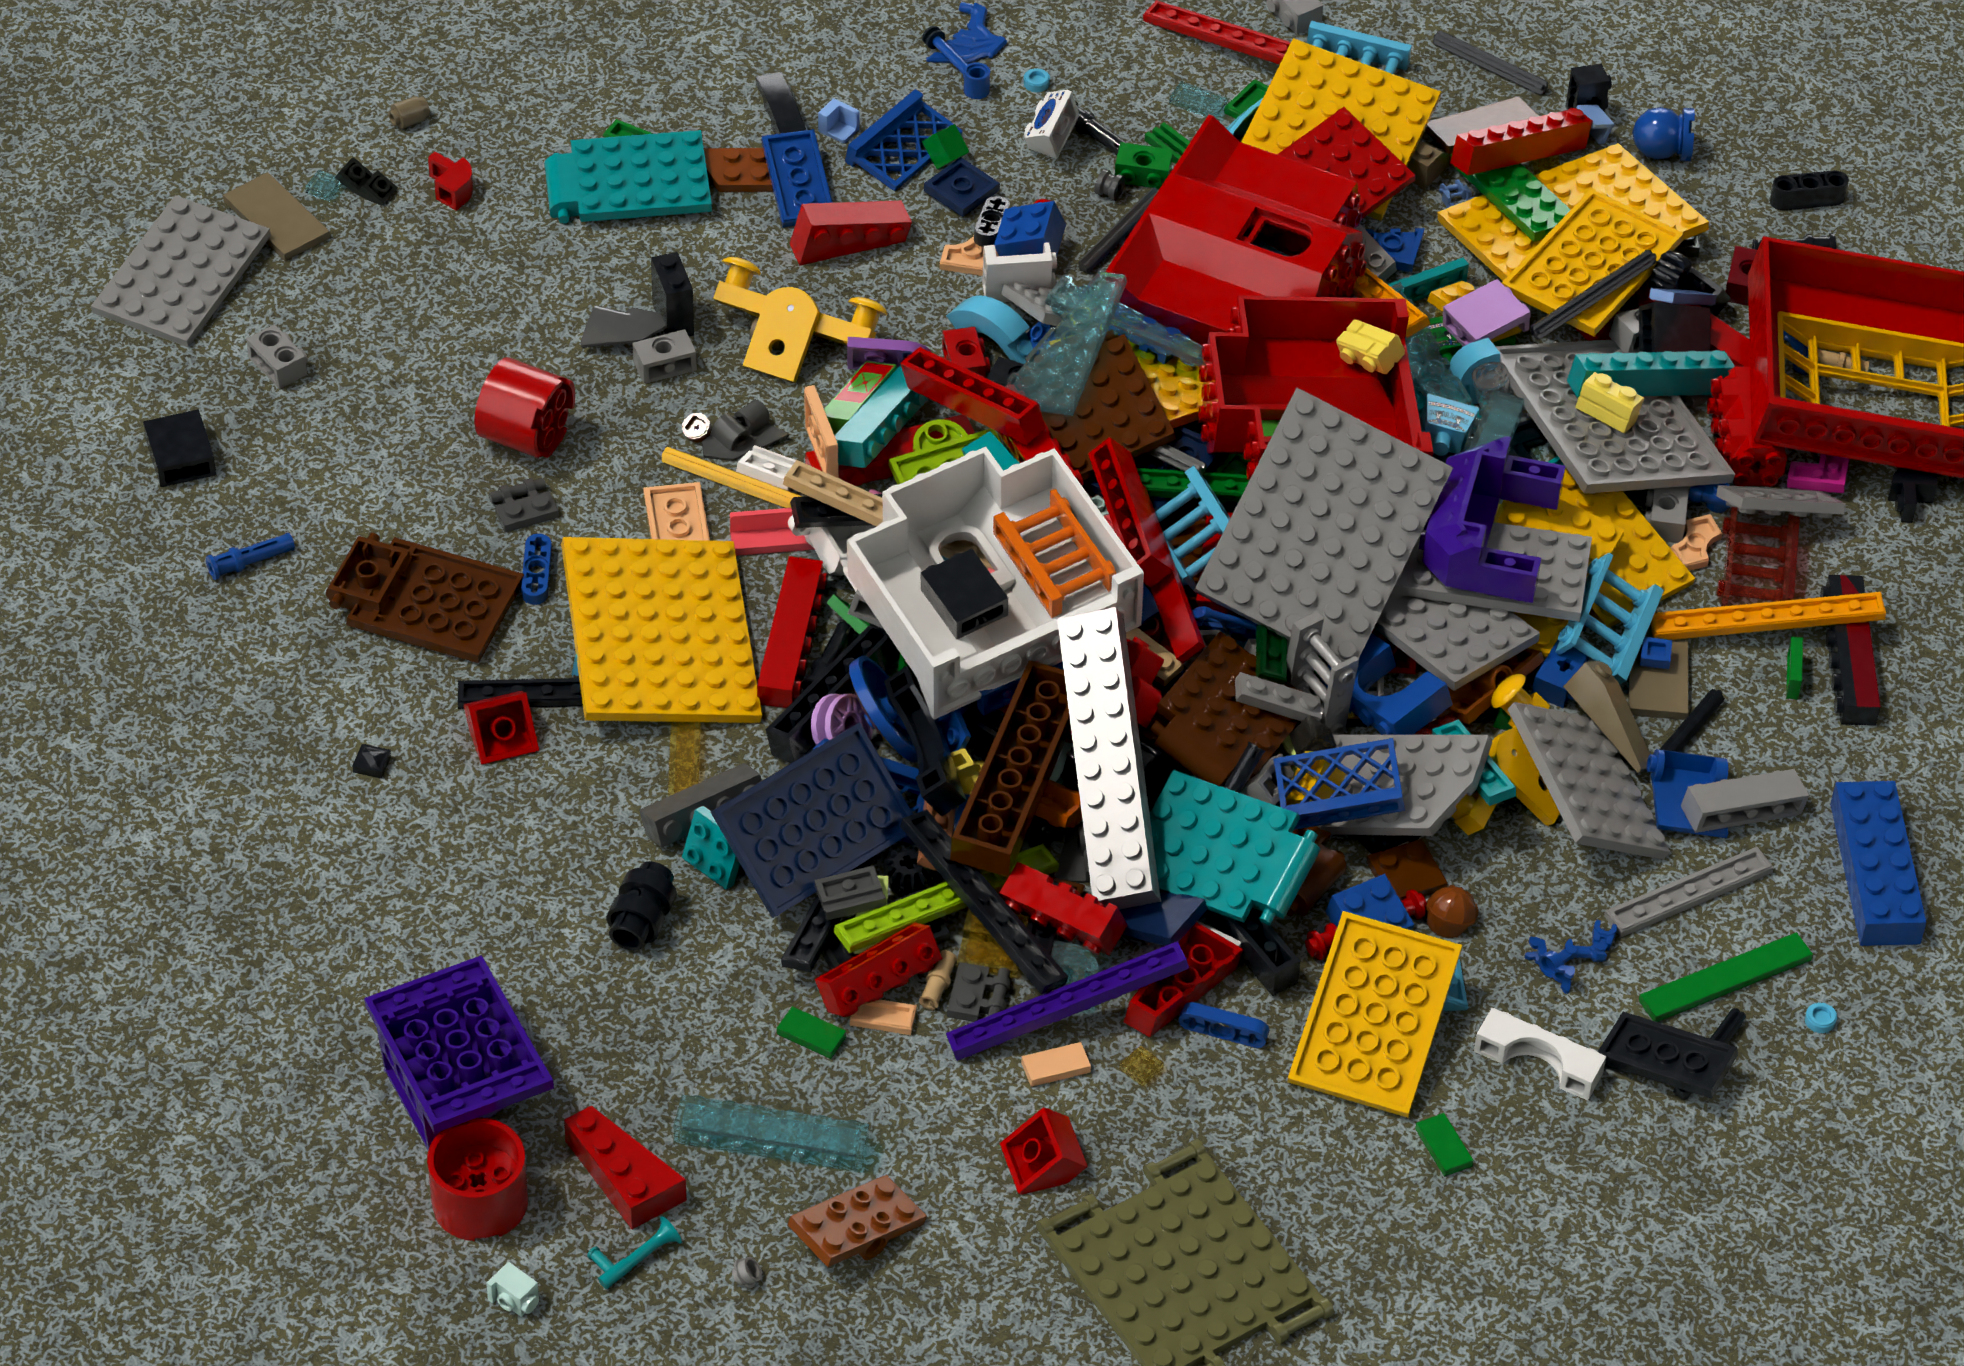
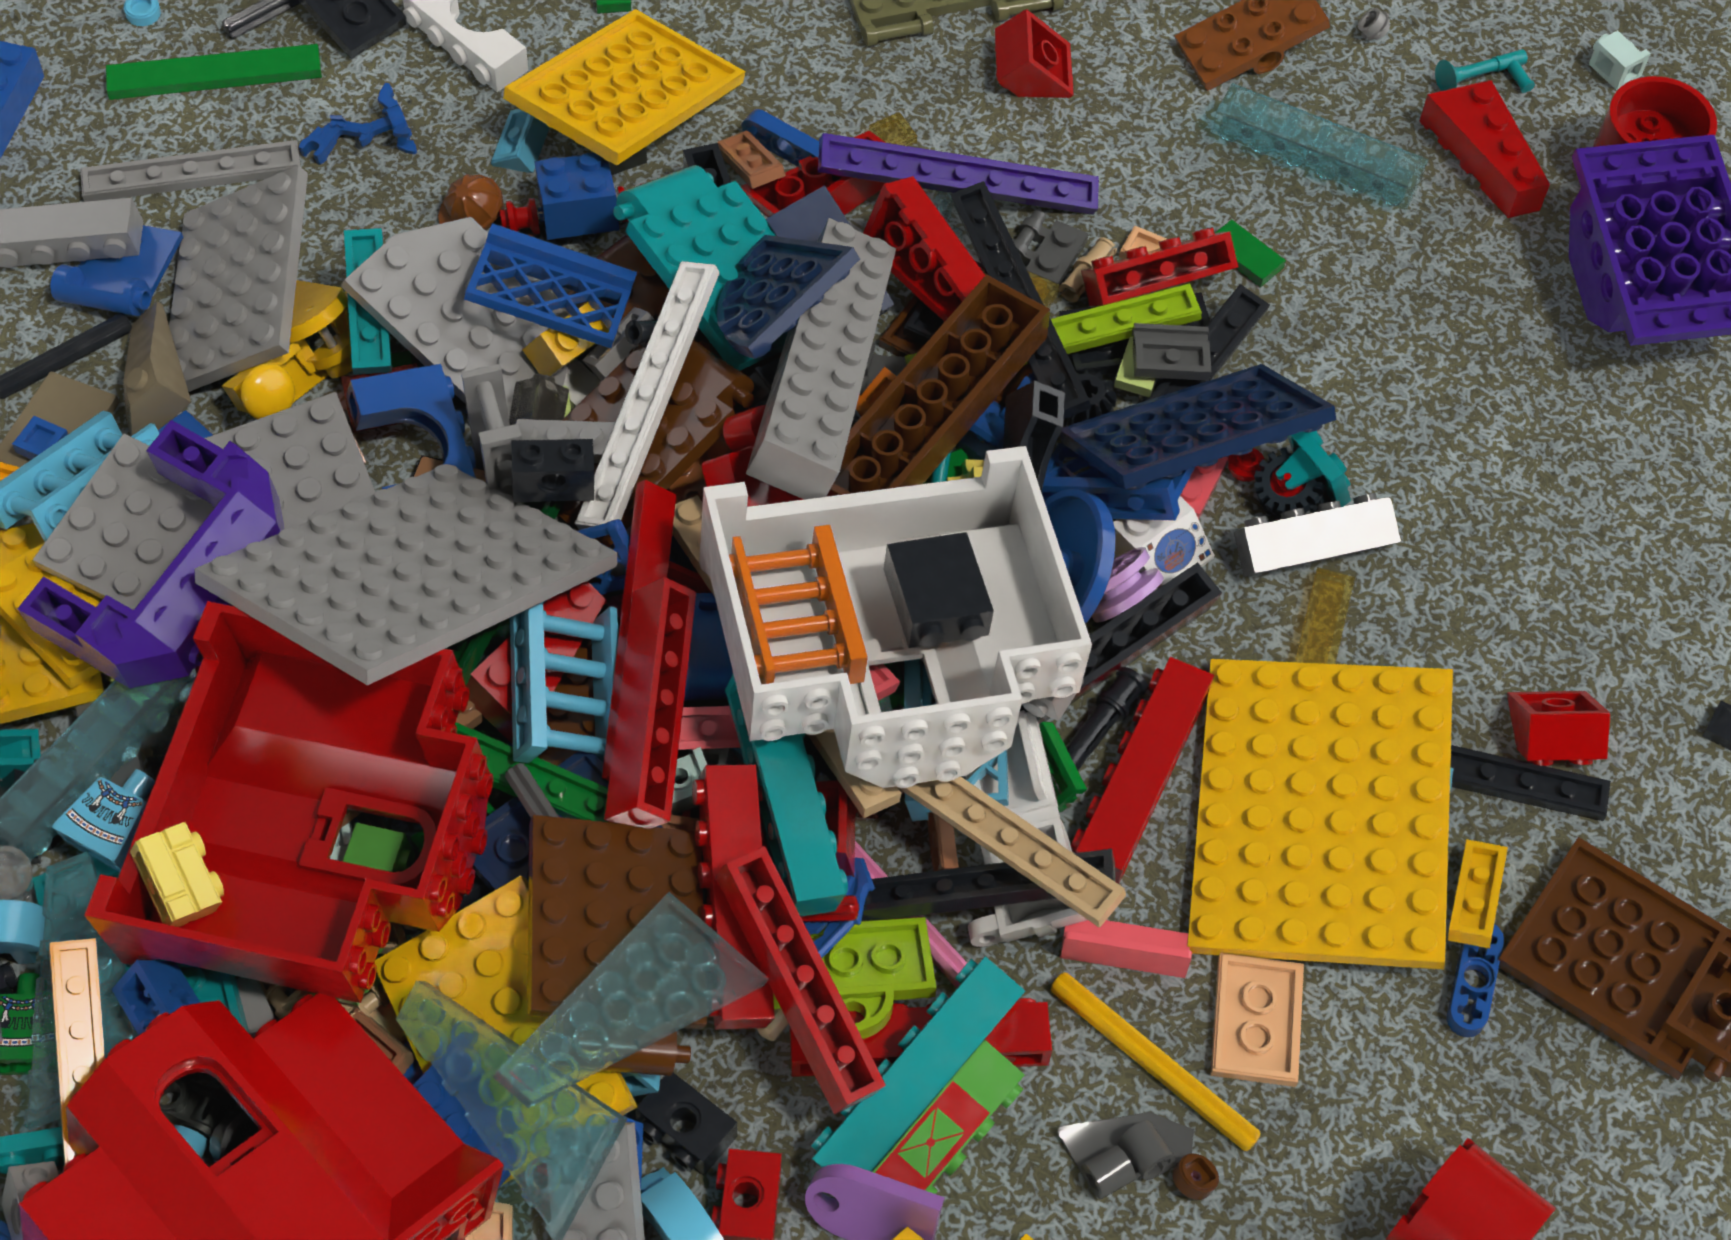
camera: 165 degrees left, 10 degrees up
(524, 511) = (1475, 1090): dark grey plate -> none
(544, 603) = (1477, 894): none -> yellow plate
(641, 905) = (1419, 419): black piece -> none
(765, 466) = (1102, 1065): white plate -> none
(820, 432) = (1034, 1022): light nougat tile -> none
(1056, 1064) = (990, 148): light nougat tile -> none
(1164, 786) = (776, 287): none -> dark blue plate
(1225, 711) = (649, 394): none -> white tile
(1245, 982) = (750, 159): none -> nougat tile
(1263, 628) = (552, 470): none -> black brick

